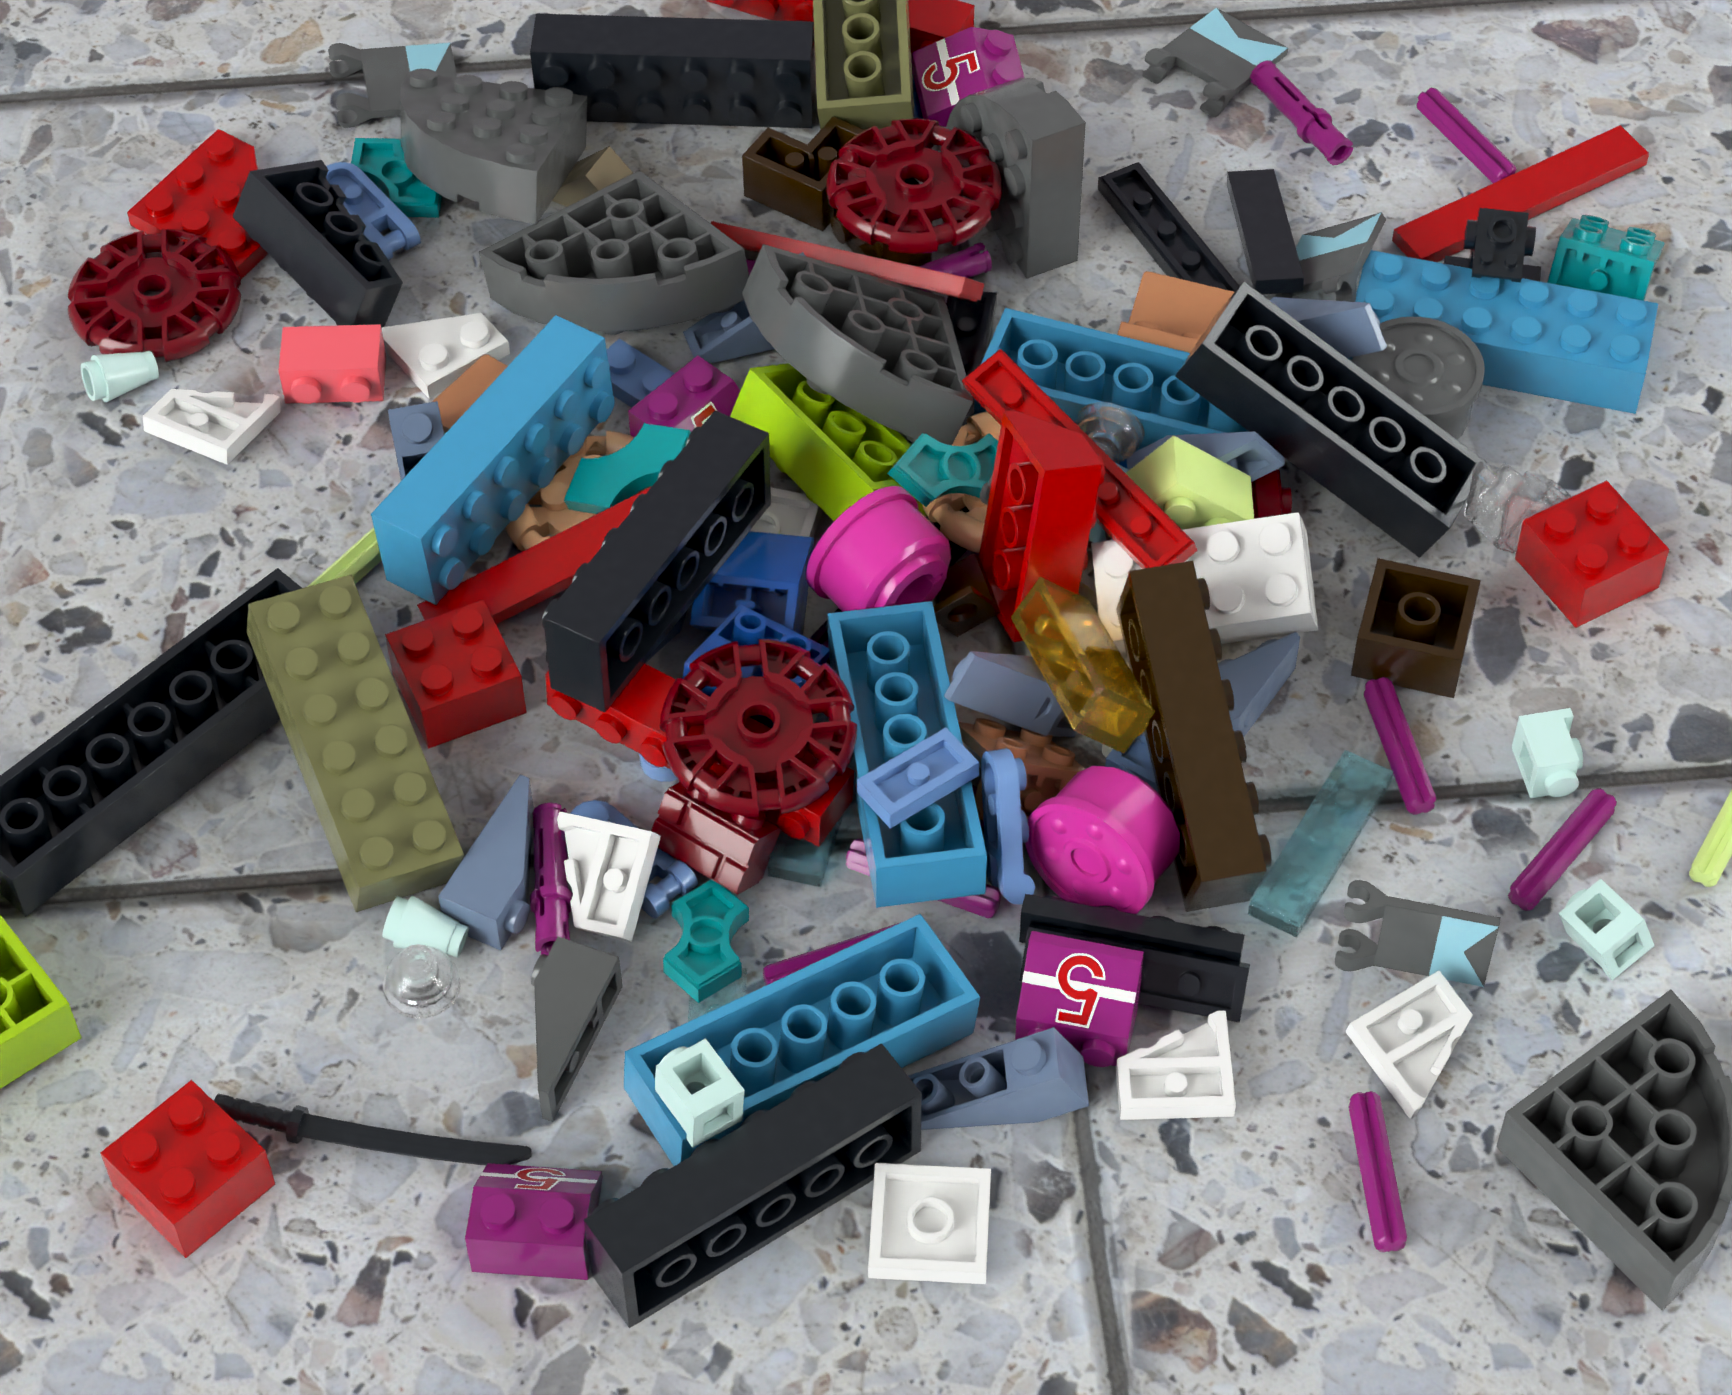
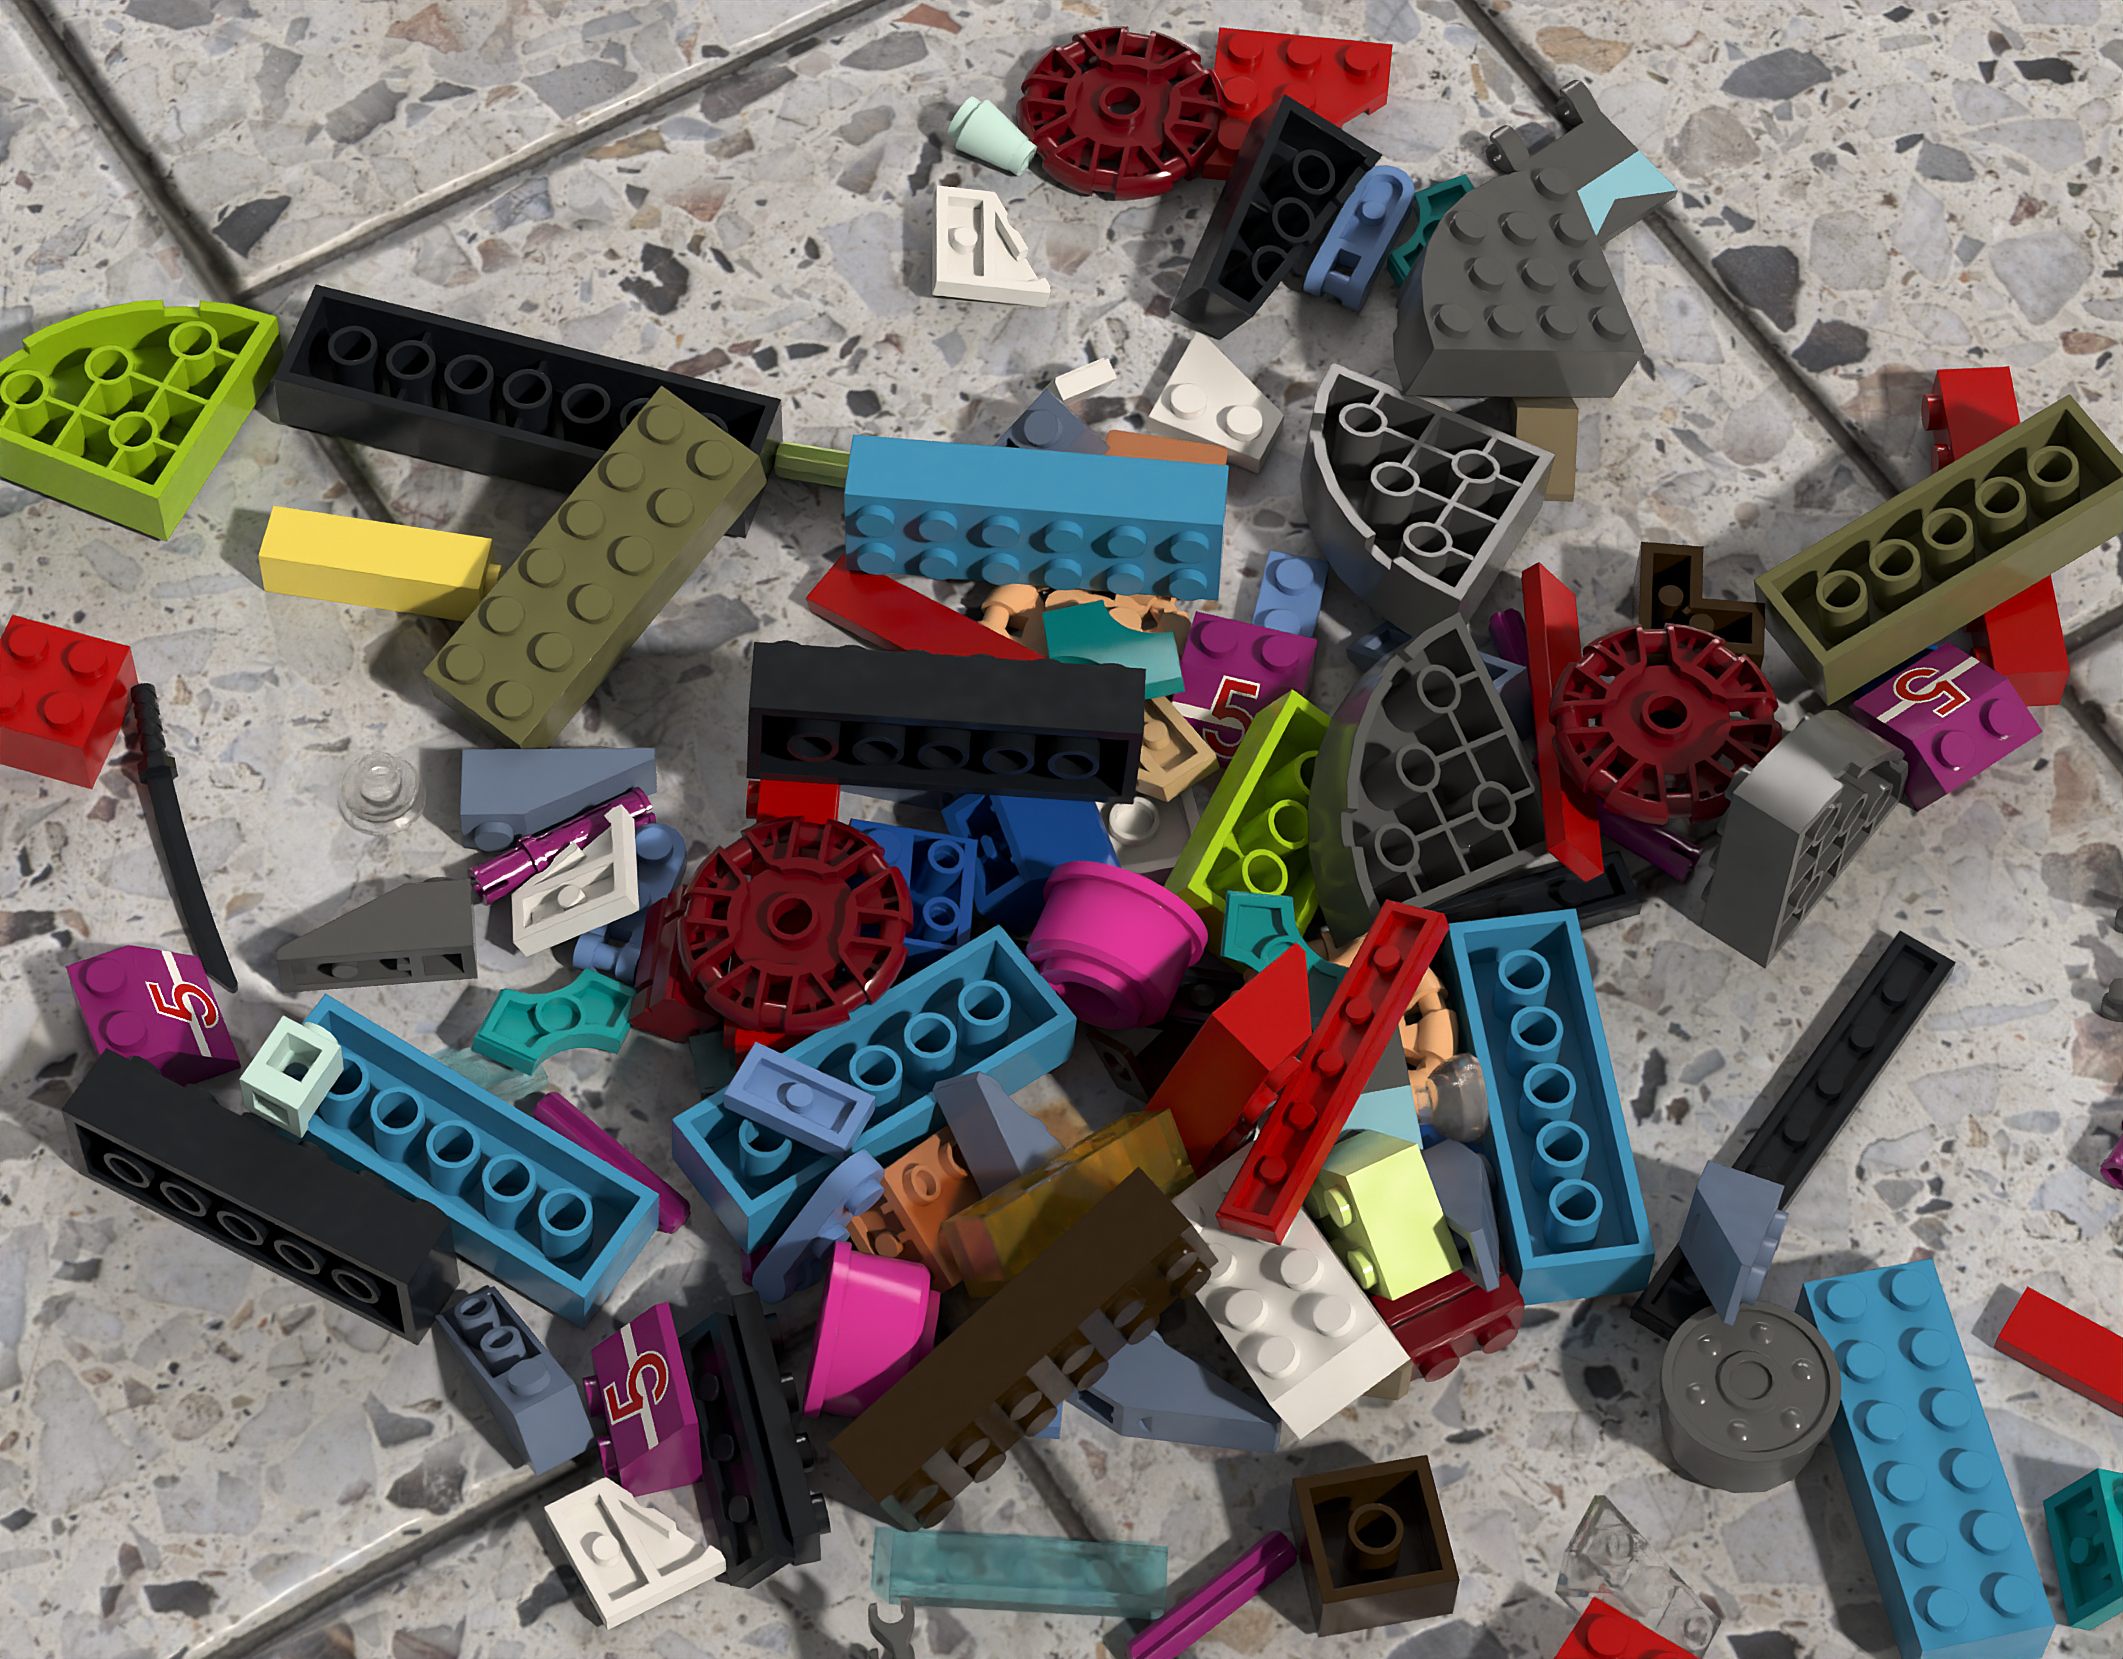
camera: 60 degrees right, 5 degrees up
(216, 897) = (376, 564): none -> light yellow brick
(332, 364) = (1120, 315): coral brick -> none
(374, 410) = (1082, 382): none -> white tile
(419, 923) = (436, 755): light aqua cone -> none
(456, 673) = (760, 601): red brick -> none
(680, 68) = (1739, 404): black brick -> none
(929, 1223) = (318, 1386): white plate -> none
(1172, 311) = (1693, 1109): nougat bracket -> none
(1265, 232) = (1918, 1141): black tile -> none
(1331, 419) = (1594, 1313): black brick -> none
(1335, 256) = (1891, 1228): dark grey flag -> none
(1498, 246) = (2018, 1397): black tile -> none

